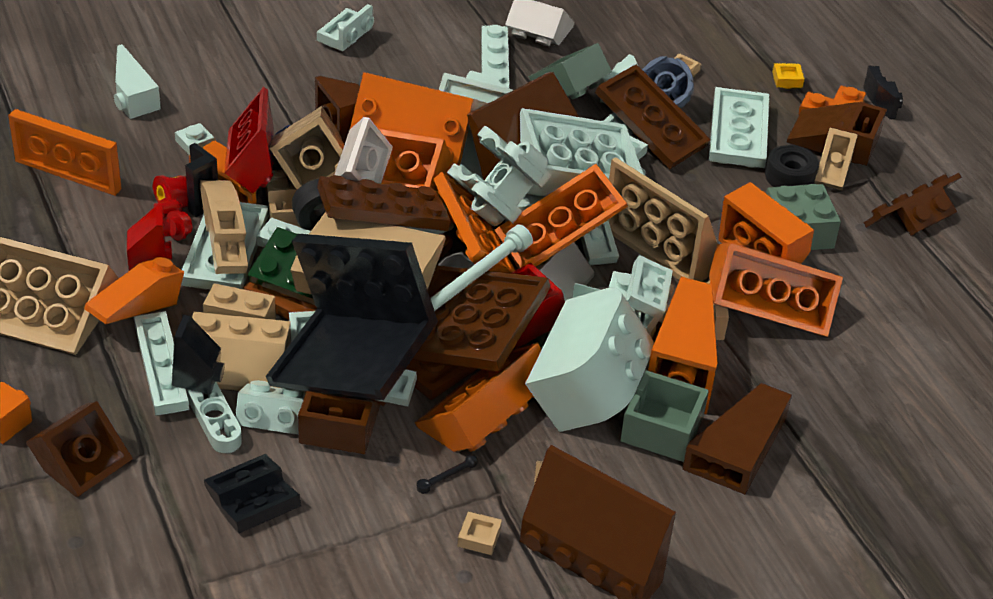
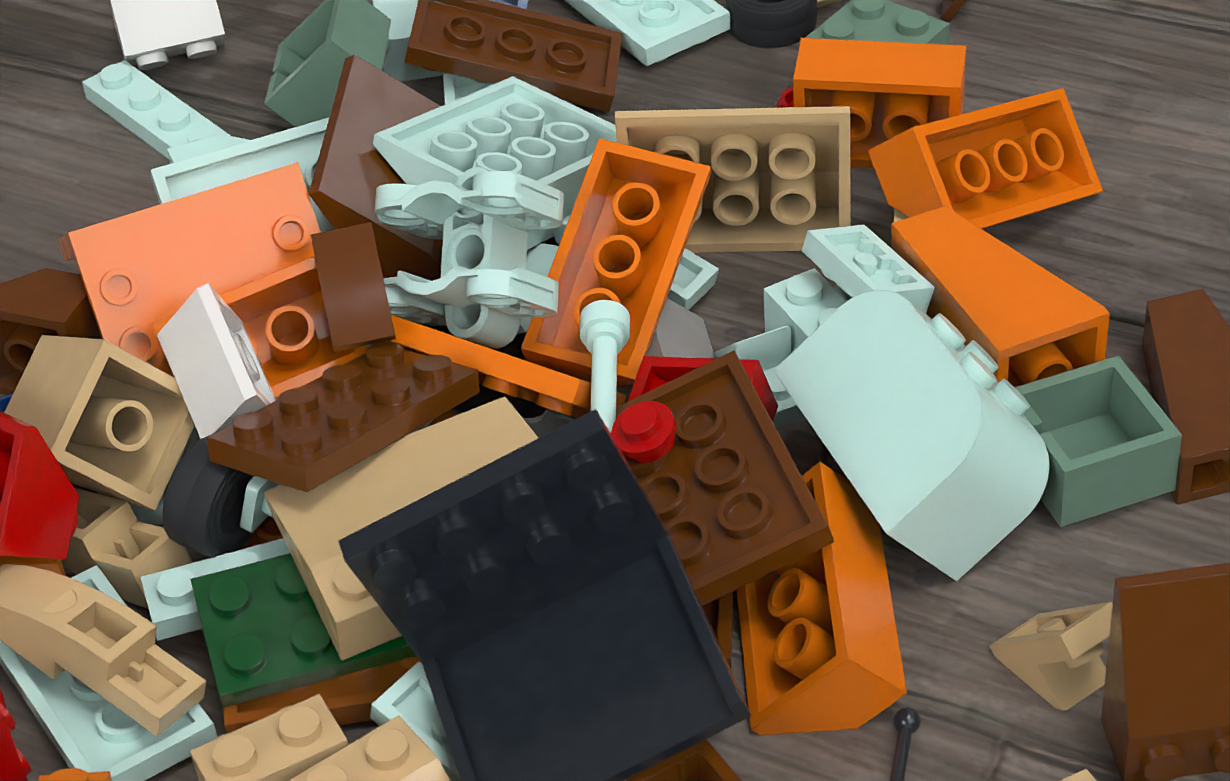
camera: 35 degrees left, 0 degrees up
(437, 155) = (353, 287): none -> reddish brown slope
(481, 284) = (645, 431): none -> red plate

